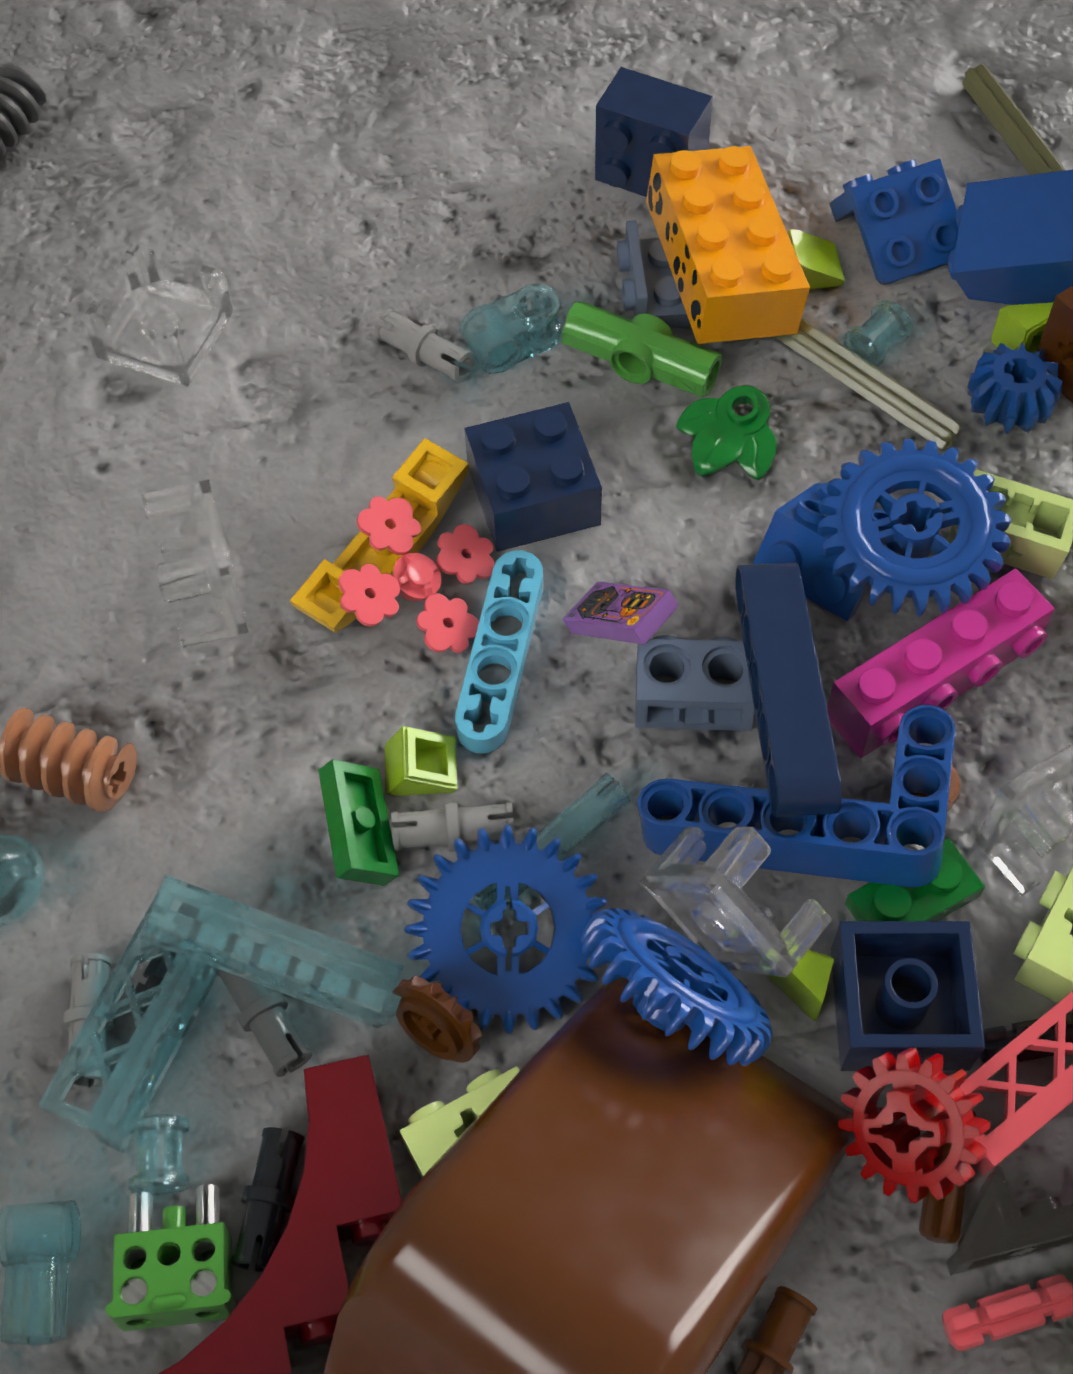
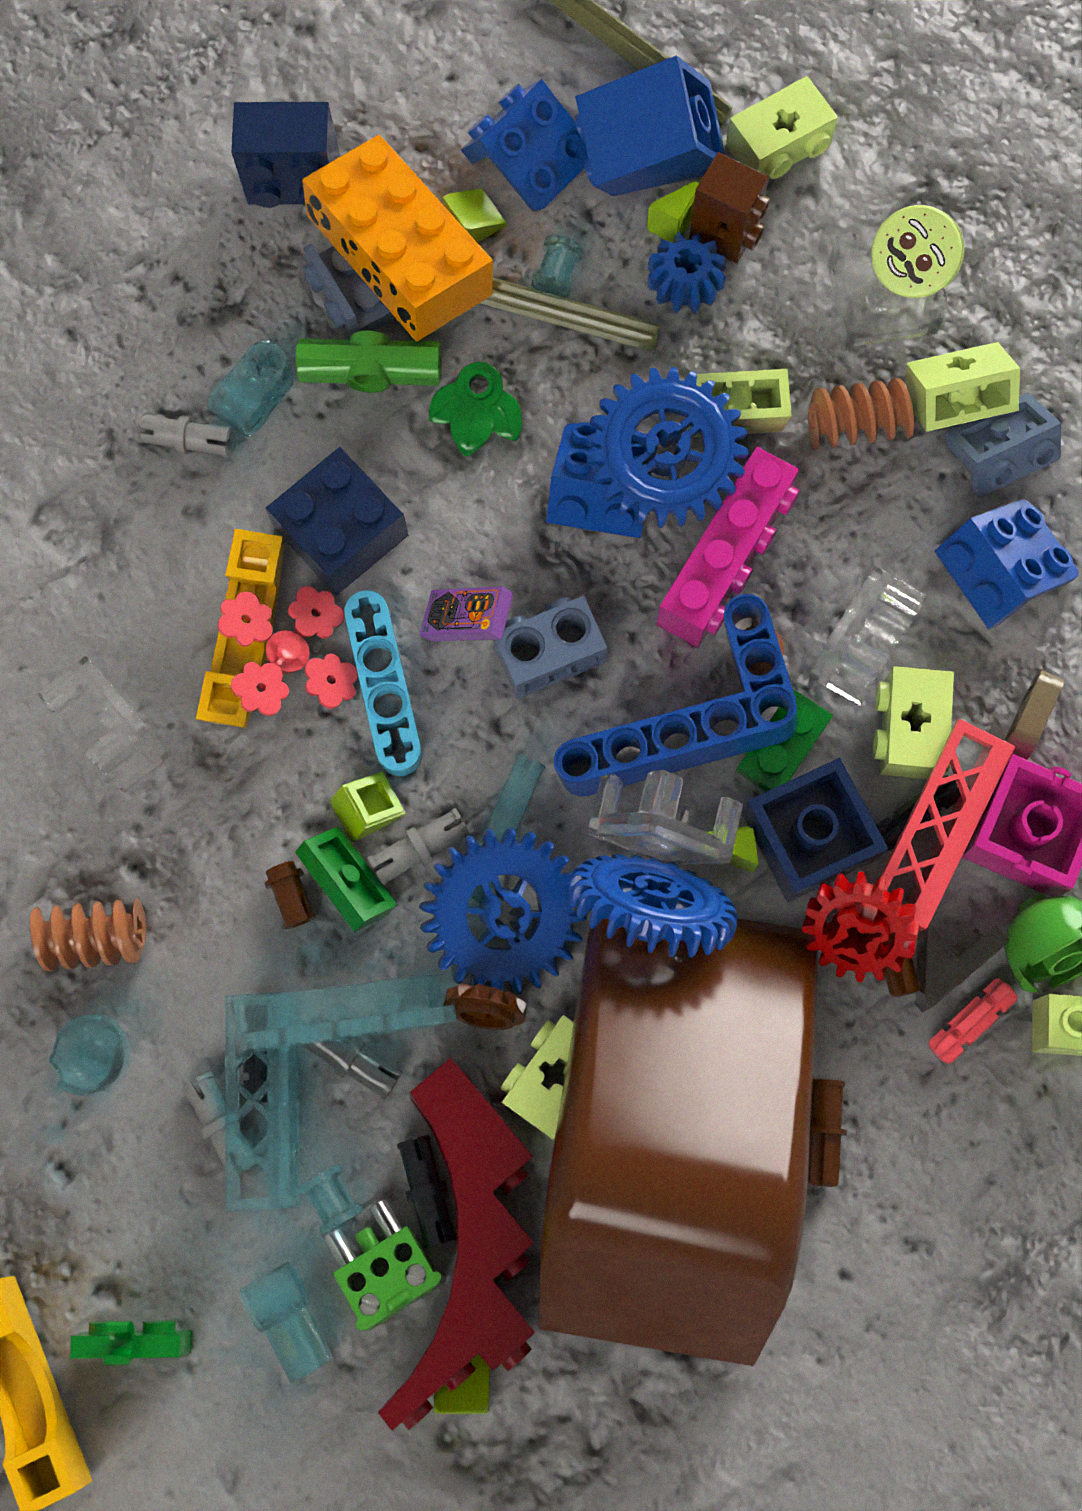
camera: 25 degrees left, 15 degrees up
(293, 804) = (290, 894): none -> reddish brown pin
(787, 691) = (629, 630): dark blue beam -> none

